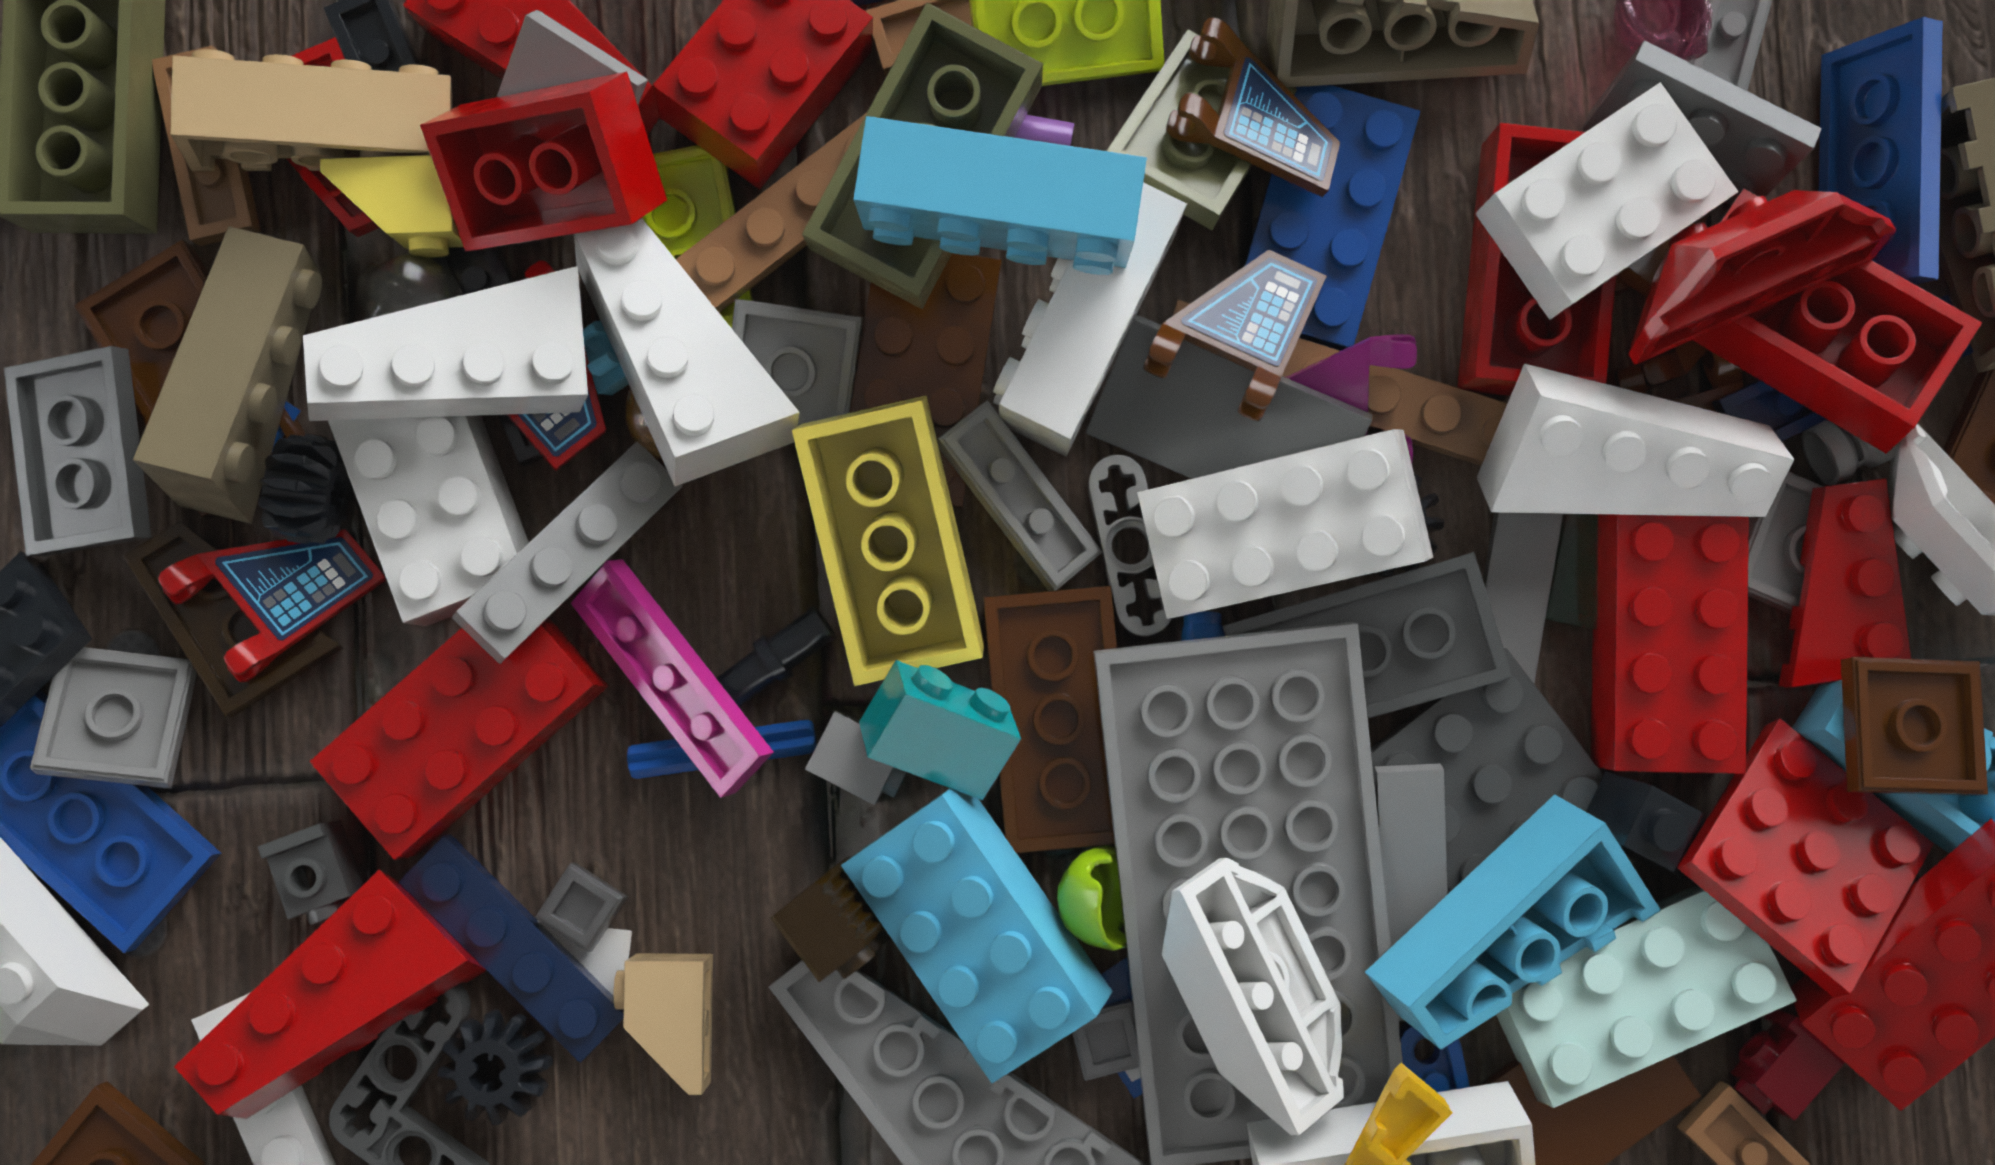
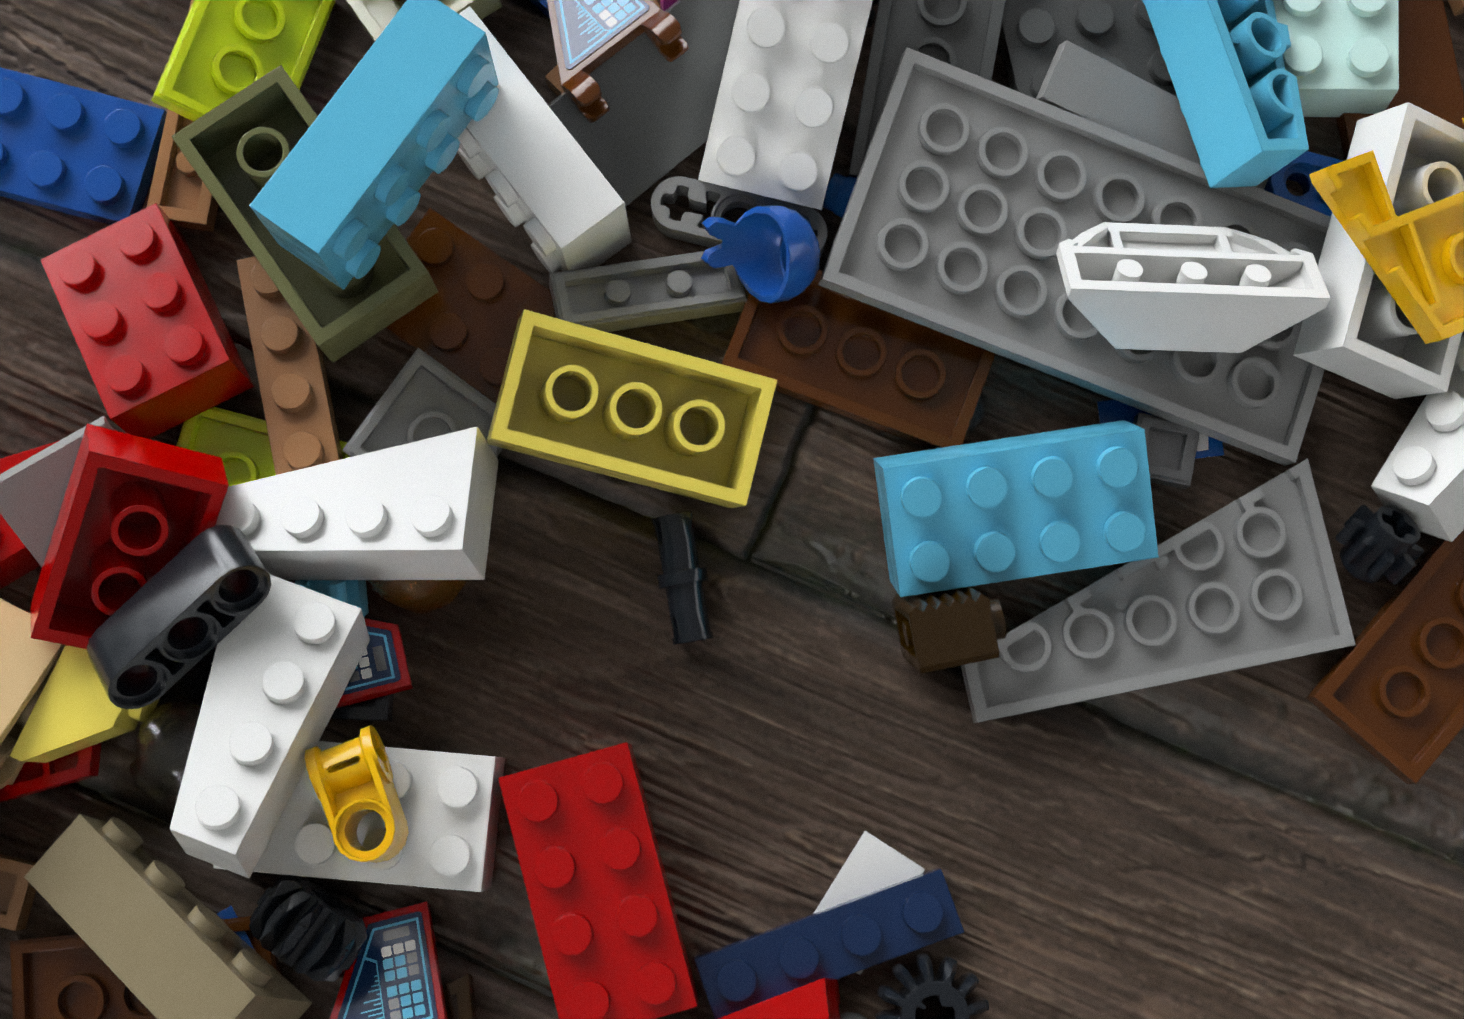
camera: 65 degrees left, 5 degrees down
(429, 475) = (356, 791): none -> yellow piece
(498, 242) = (178, 617): none -> black beam
(566, 553) = (494, 710): light grey plate -> none
(581, 907) = (821, 864): flat silver tile -> none
(669, 758) = (740, 665): blue axle -> none
(670, 1012) = (956, 823): tan slope -> none
(671, 678) = (654, 672): dark pink plate -> none
(844, 762) = (810, 542): light grey brick -> none
(939, 729) = (821, 448): teal brick -> none
(1091, 899) = (1034, 397): lime hair -> none
(1104, 591) = (769, 250): none -> blue piece

